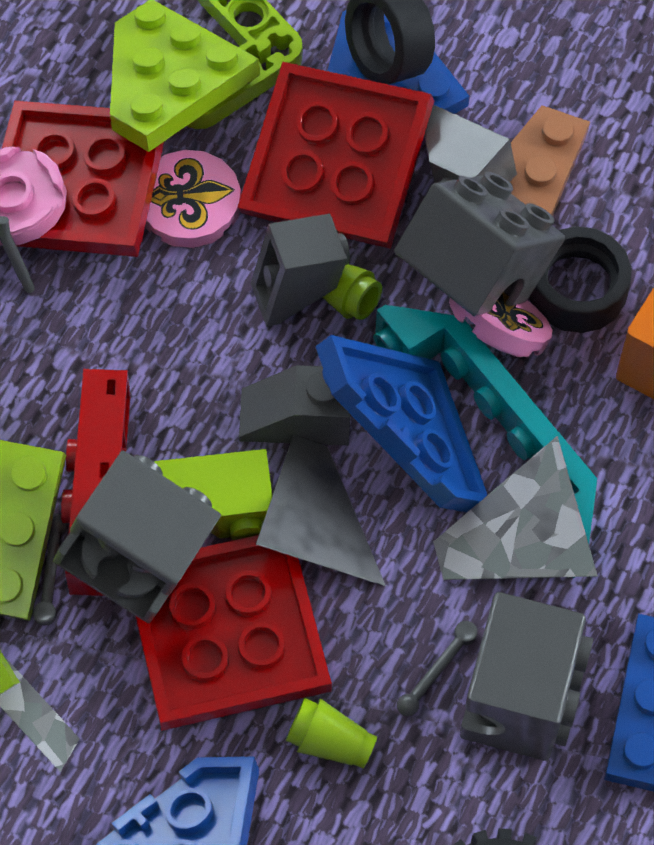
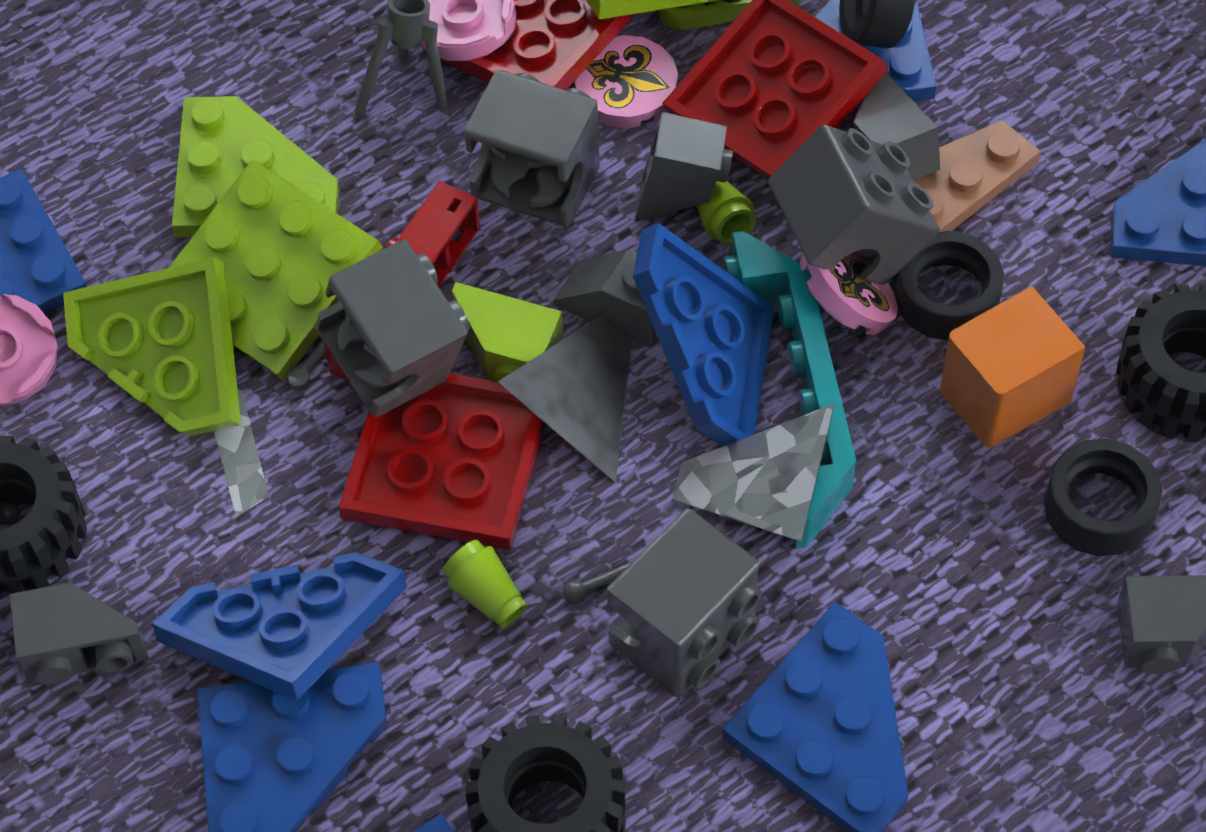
camera: 30 degrees right, 5 degrees down
(152, 299) = (534, 147): none -> dark grey piece

